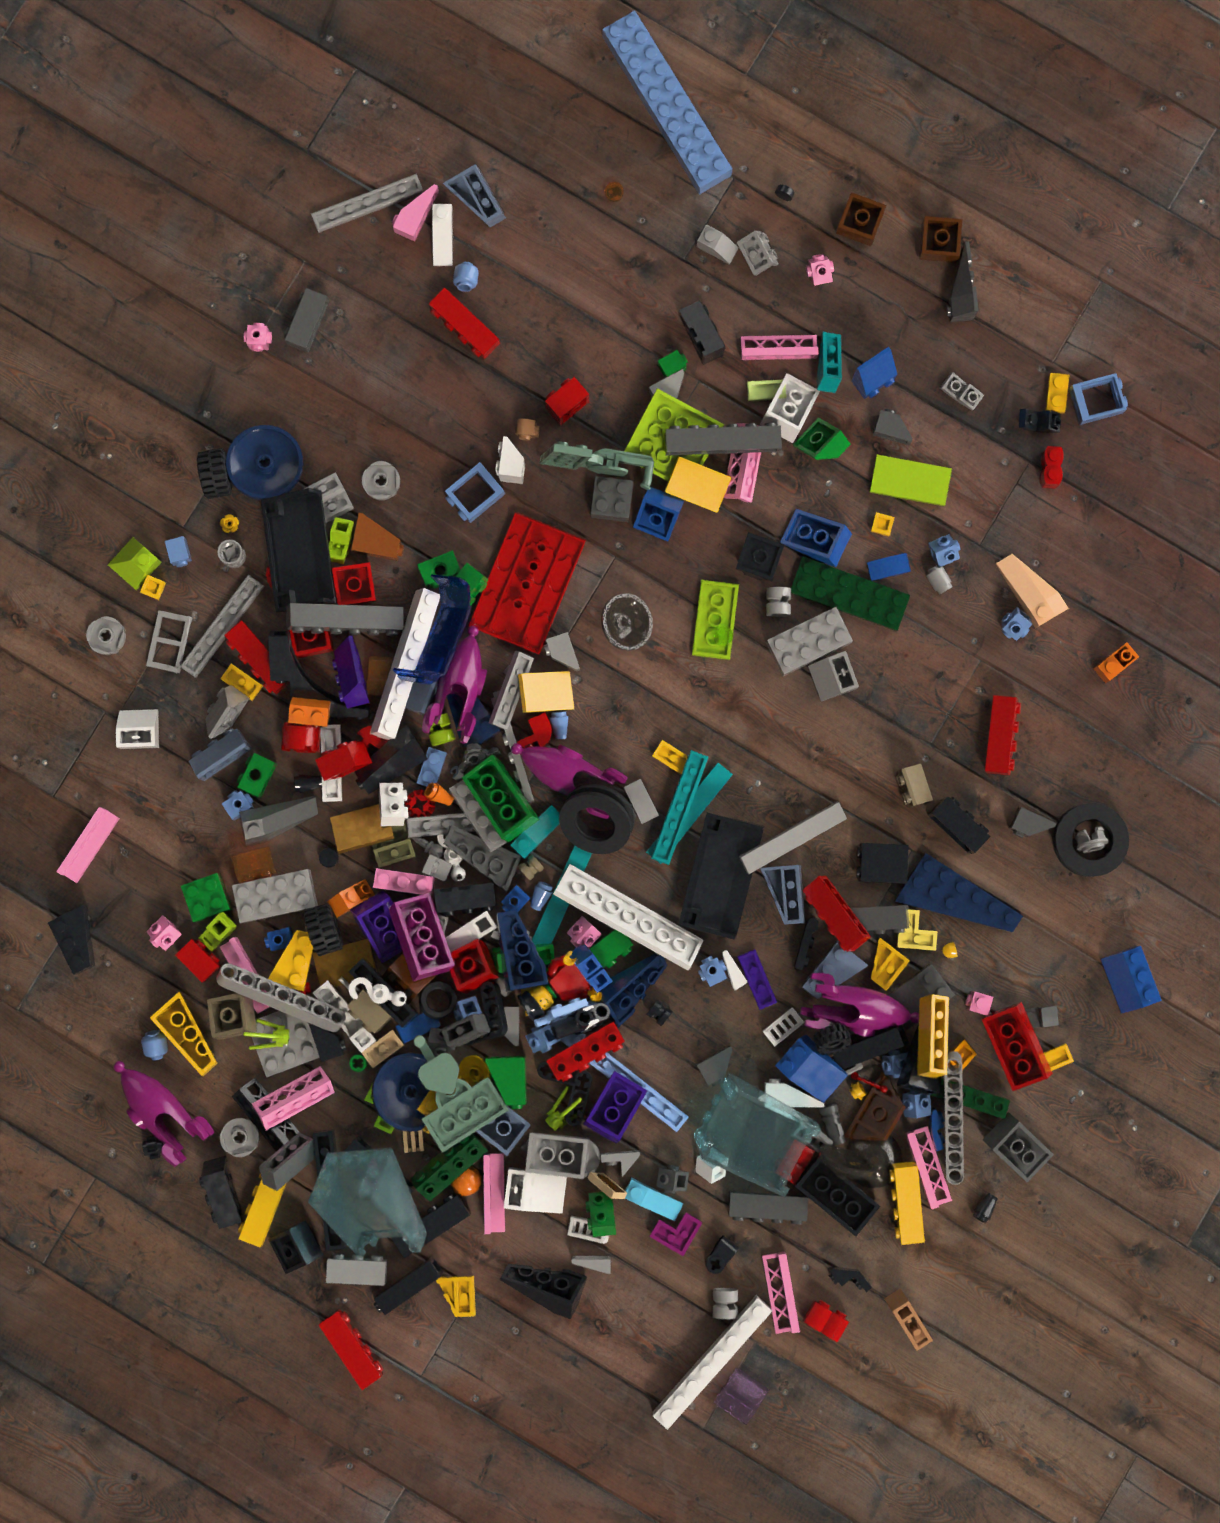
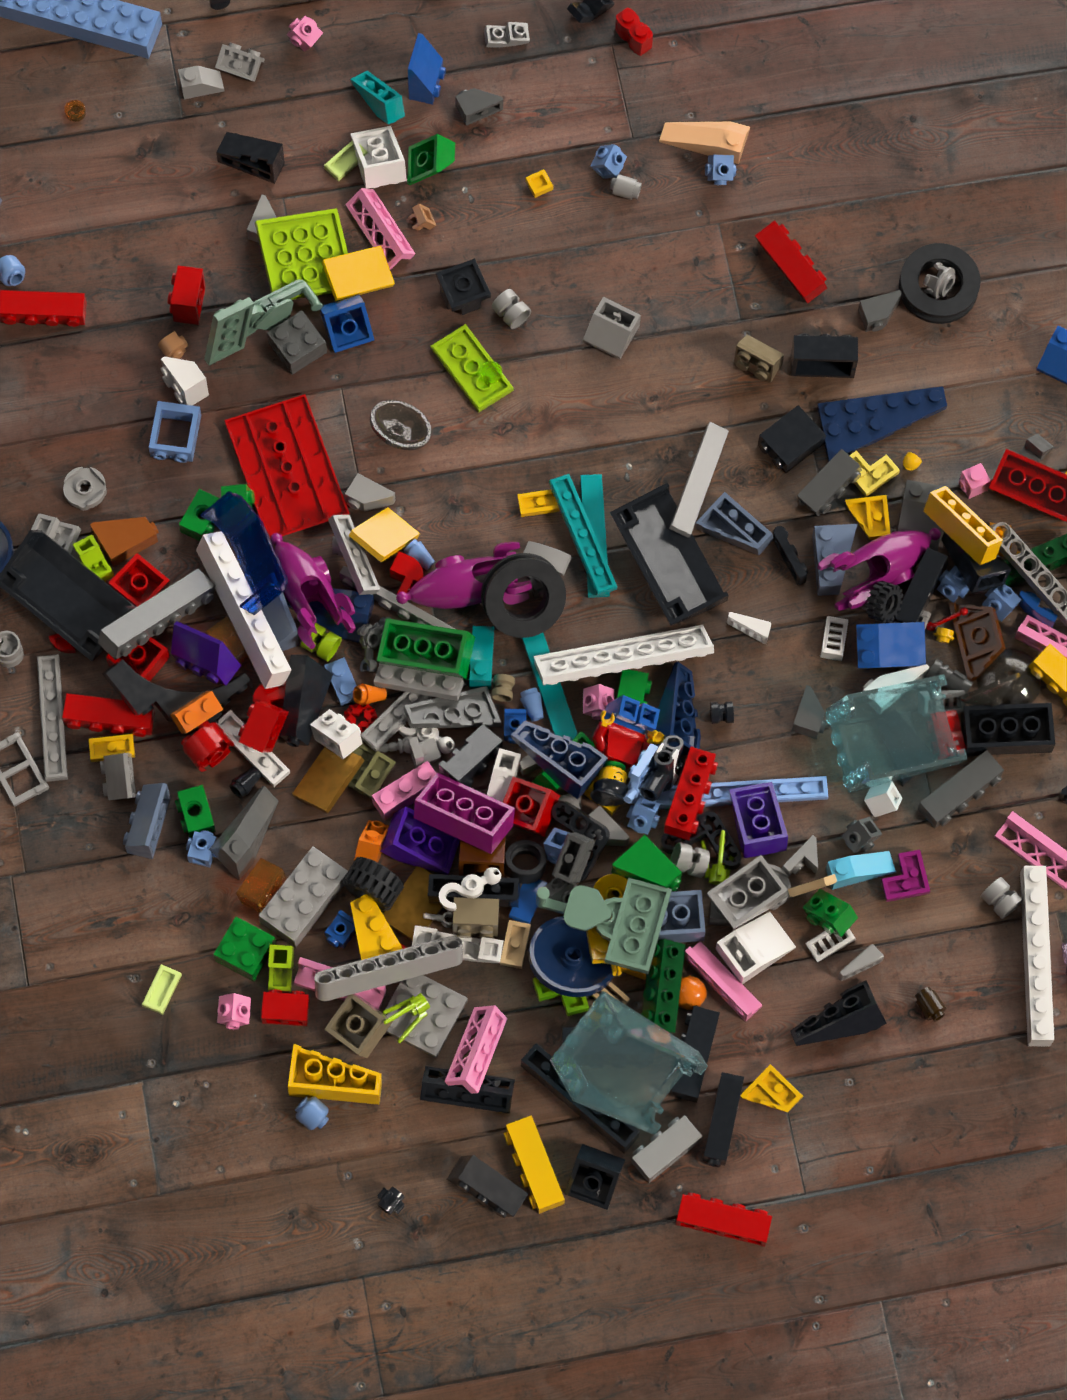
camera: 45 degrees left, 15 degrees down
(74, 939) = (158, 1084): black wedge -> none
(88, 844) = (98, 996): bright pink fence -> none
(133, 875) = (161, 989): none -> yellowish green tile
(137, 729) = (56, 861): white slope -> none
(149, 1102) = (352, 1160): magenta piece -> none
(233, 1146) = (458, 1114): light grey plate -> none
(287, 1161) = (522, 1101): dark grey brick -> none
(327, 1043) = (462, 979): black slope -> none
(328, 857) = (321, 828): black tile -> none
(358, 1069) = (499, 971): green bush -> none
(544, 1096) = (692, 860): none -> light grey wheel
(613, 1330) = (930, 1004): none -> dark brown brick
(672, 363) = (248, 199): green brick -> none
(719, 974) = (734, 640): medium blue brick -> none
(723, 439) = (348, 217): dark grey brick -> none
(724, 1252) = (960, 860): black piece -> none
(757, 979) = (781, 620): dark purple tile -> none
(779, 352) = (327, 123): bright pink fence -> none
(780, 480) = (423, 217): none -> medium nougat tile
(809, 641) = (566, 319): light grey brick -> none
(816, 537) = (495, 235): blue slope -> none
(836, 914) = (792, 505): red brick -> none
(850, 594) = (564, 258): dark green plate -> none
(889, 566) = (575, 211): blue slope -> none
(910, 480) = (530, 133): lime tile -> none
(1116, 662) = (827, 134): orange slope -> none

